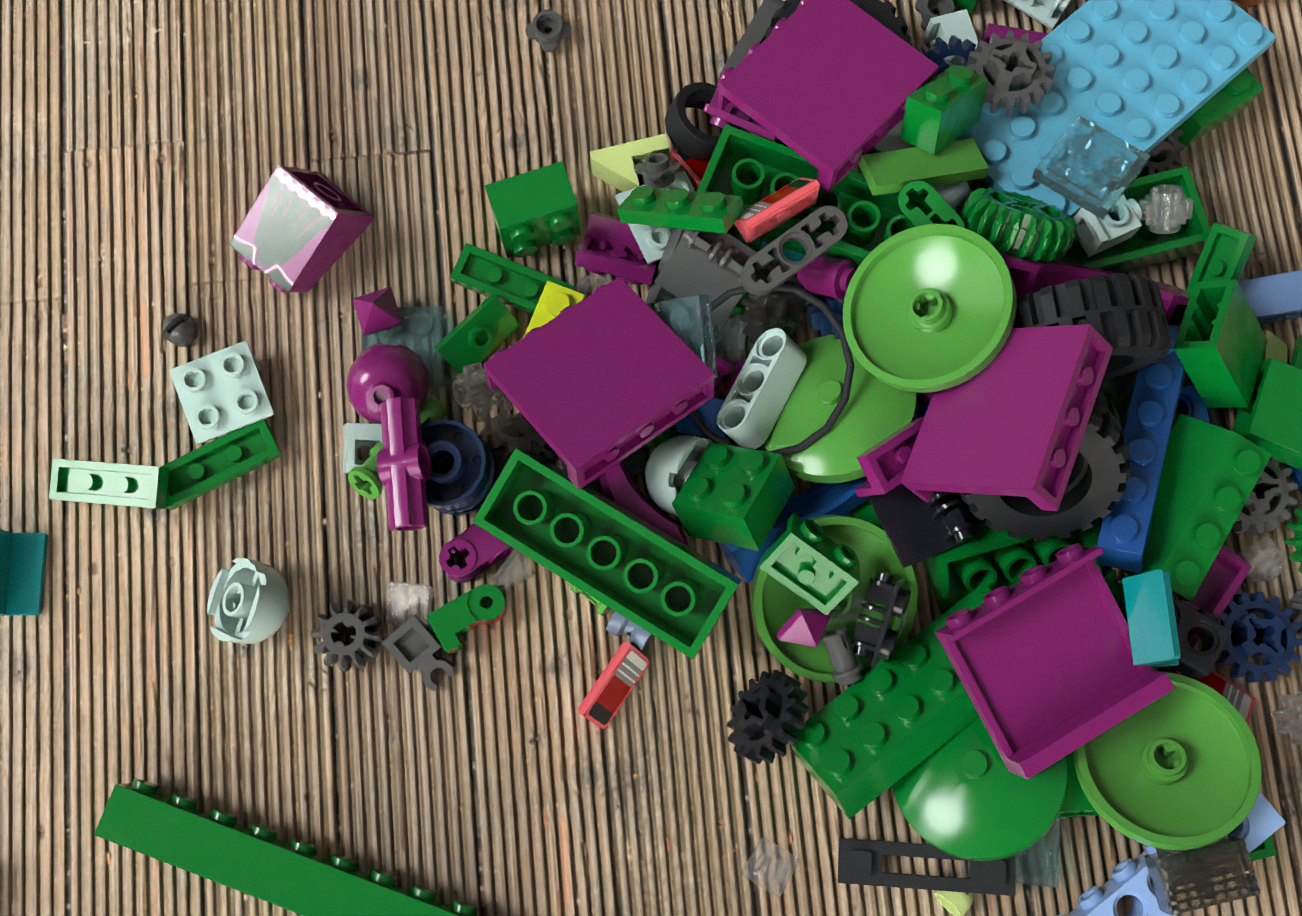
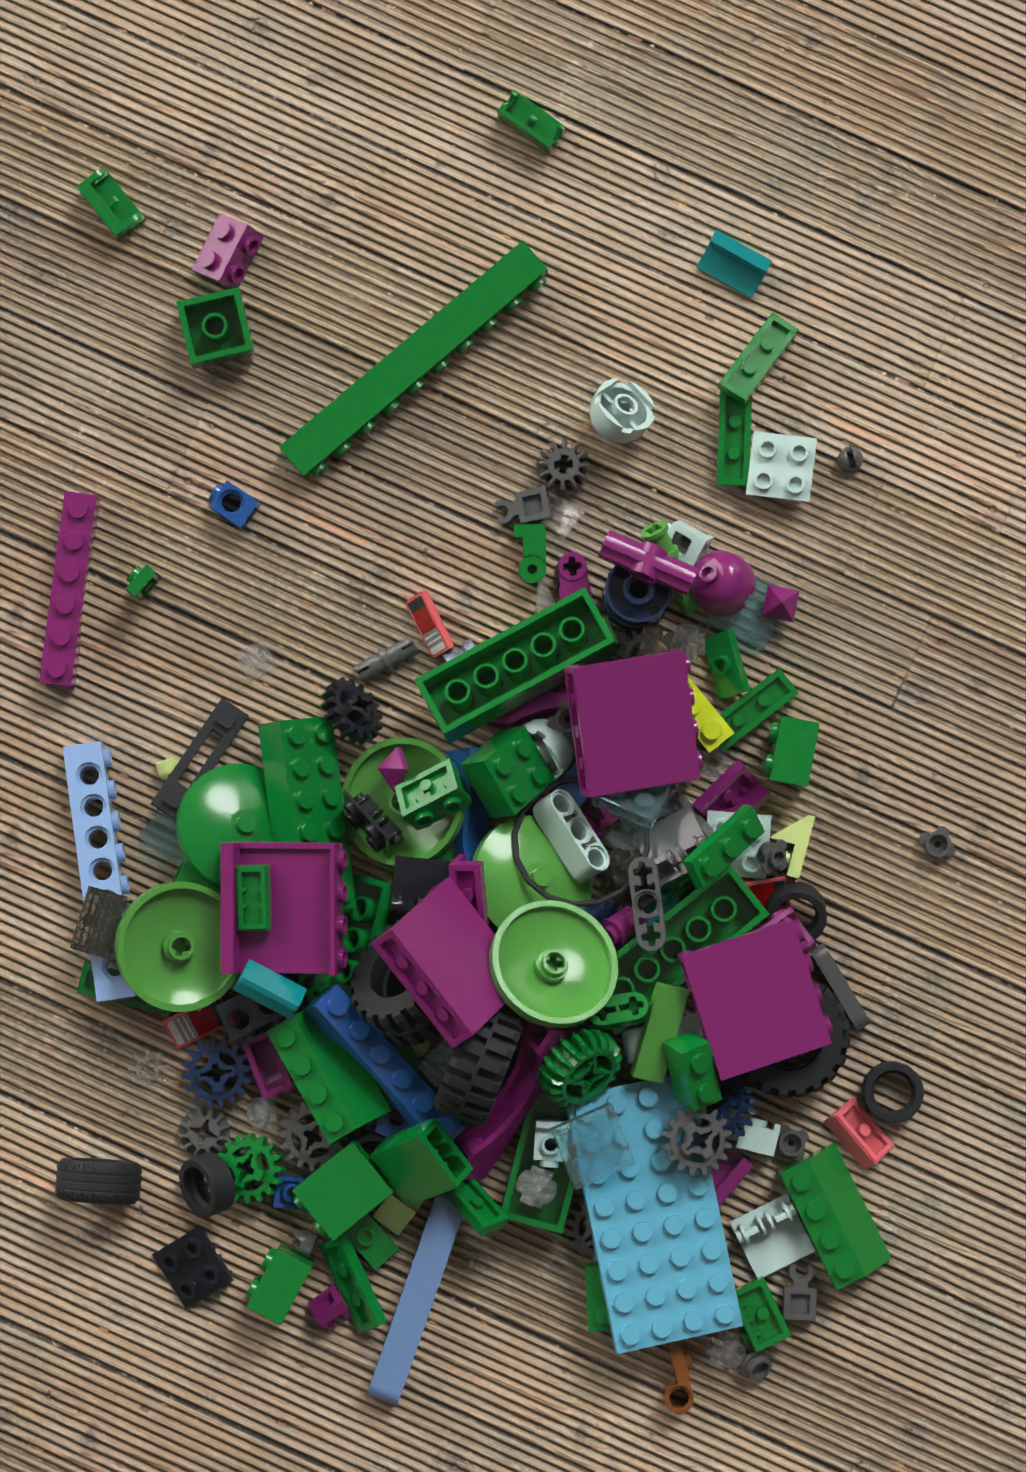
camera: 120 degrees right, 10 degrees up
(298, 228) = (874, 582): slope -> none
(641, 472) = (557, 721): none -> dark grey plate
(682, 713) = (386, 659): none -> dark grey pin
(777, 208) = (686, 911): coral slope -> none
(842, 657) = (362, 783): dark grey pin -> none
(1061, 701) = (253, 897): none -> green plate

